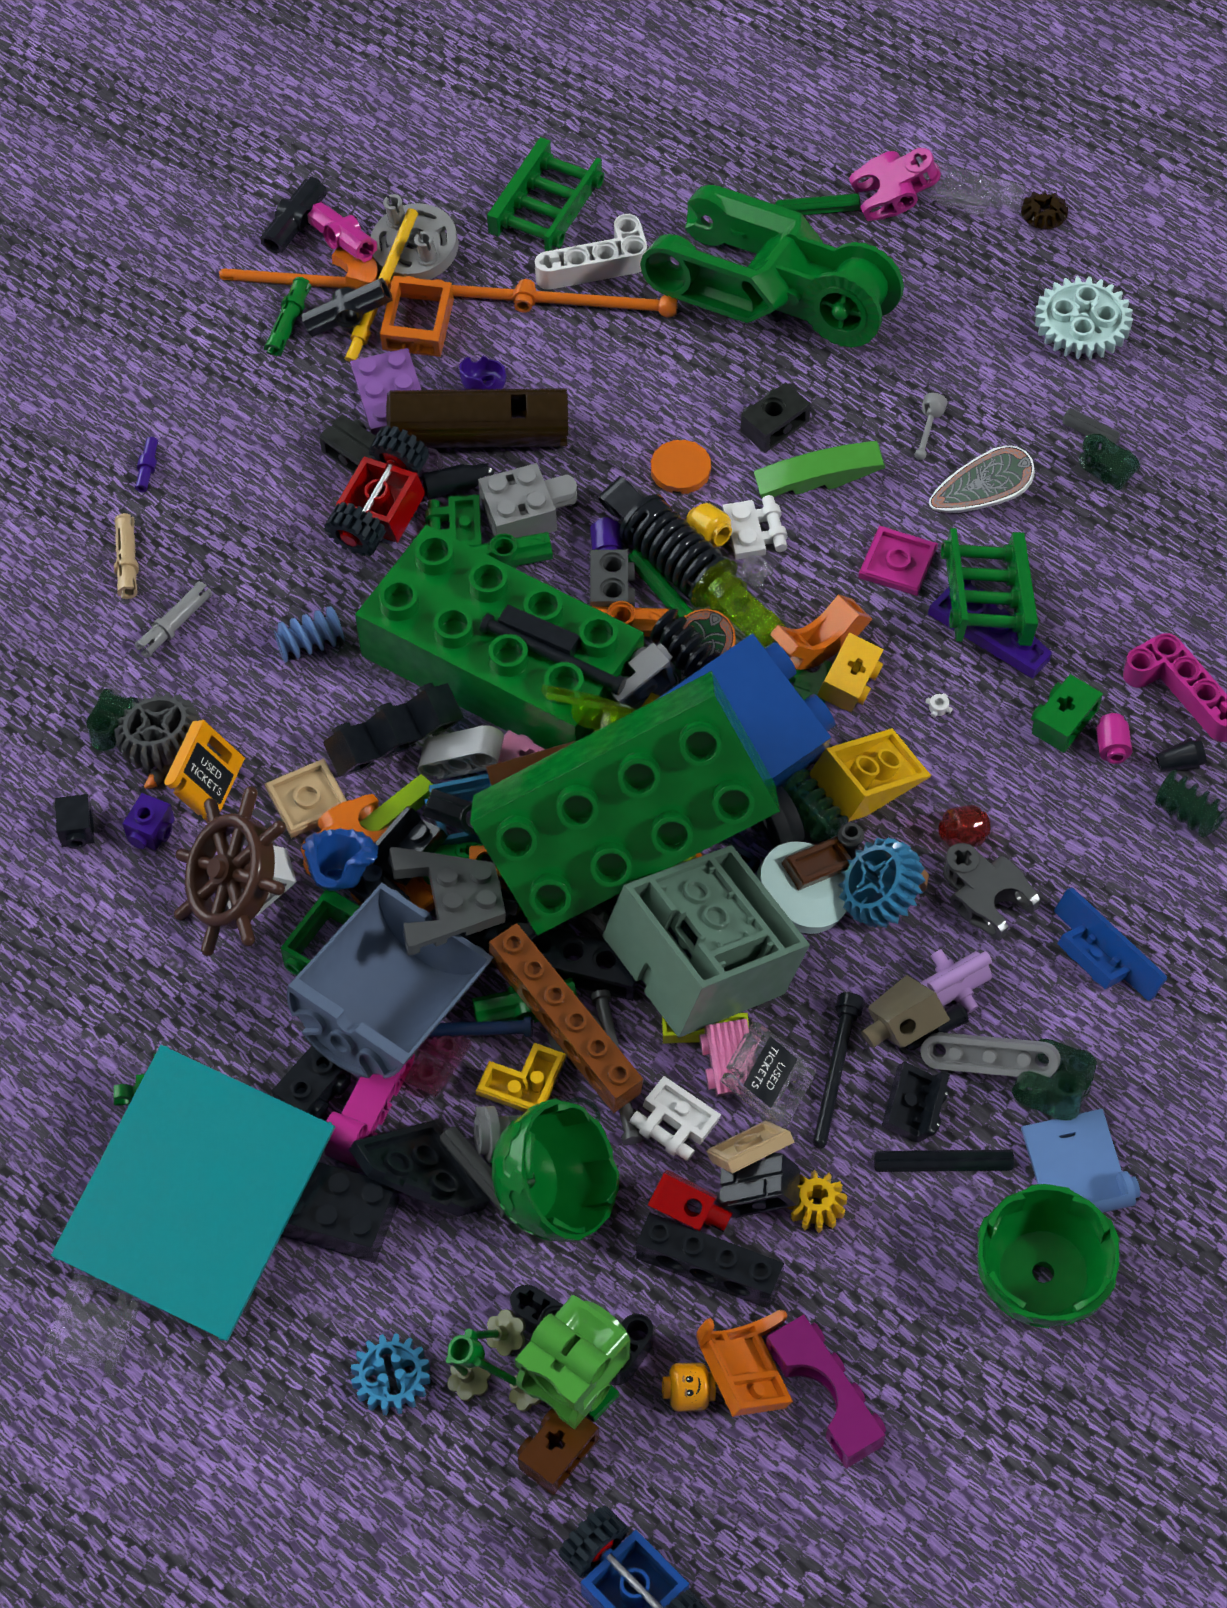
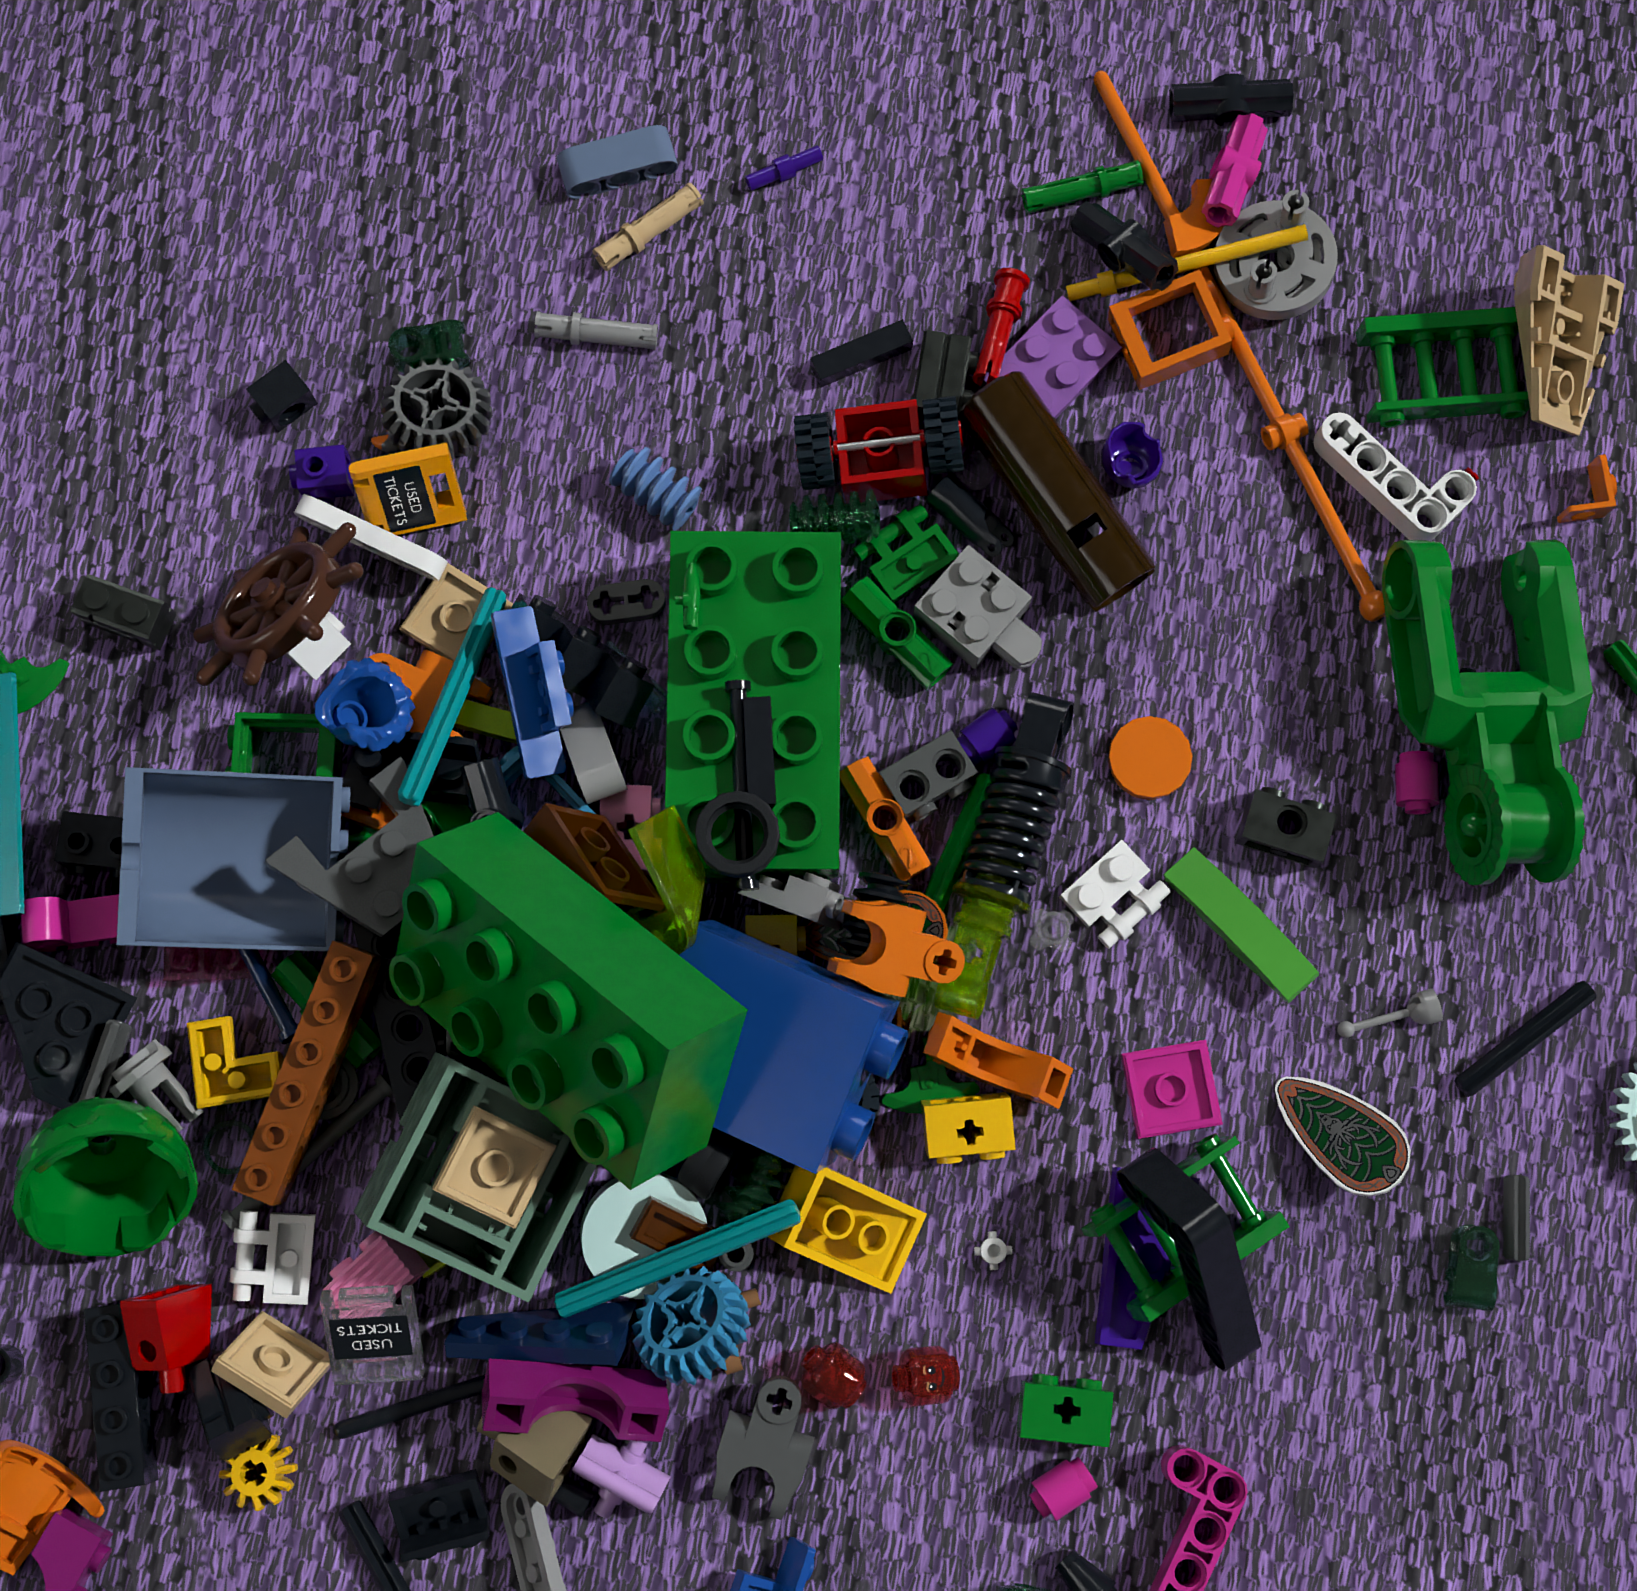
camera: 55 degrees right, 20 degrees up
(66, 550) = (617, 160): none -> sand blue beam
(154, 990) = (123, 612): none -> pearl dark grey brick
(189, 824) = (372, 538): none -> white beam
(304, 484) = (861, 353): none -> black piece
(338, 394) = (1003, 312): none -> red pin
(365, 691) = (628, 611): none -> dark grey beam
(368, 805) = (451, 699): none -> teal axle
(403, 537) = (851, 519): none -> clear green piece
(403, 748) = (533, 690): none -> blue bracket
(412, 613) = (690, 598): none -> green helmet
(564, 124) = (1561, 333): none -> tan wedge
(591, 638) = (727, 802): none -> black tyre
(679, 163) = (1604, 493): none -> orange bracket
(710, 904) = (494, 1167): none -> tan tile
(711, 523) = (1075, 842): yellow head -> none
(712, 627) = (897, 950): none -> orange piece
(792, 339) = (1417, 782): none -> dark pink brick
(833, 865) = (677, 1258): none -> teal axle
(835, 972) = (542, 1335): none -> dark blue wing
(906, 947) = (624, 1399): none -> magenta arch
(985, 369) = (1525, 1038): none -> black axle
(998, 774) = (926, 1375): none -> clear red head
(1003, 549) = (1204, 1251): none -> black beam

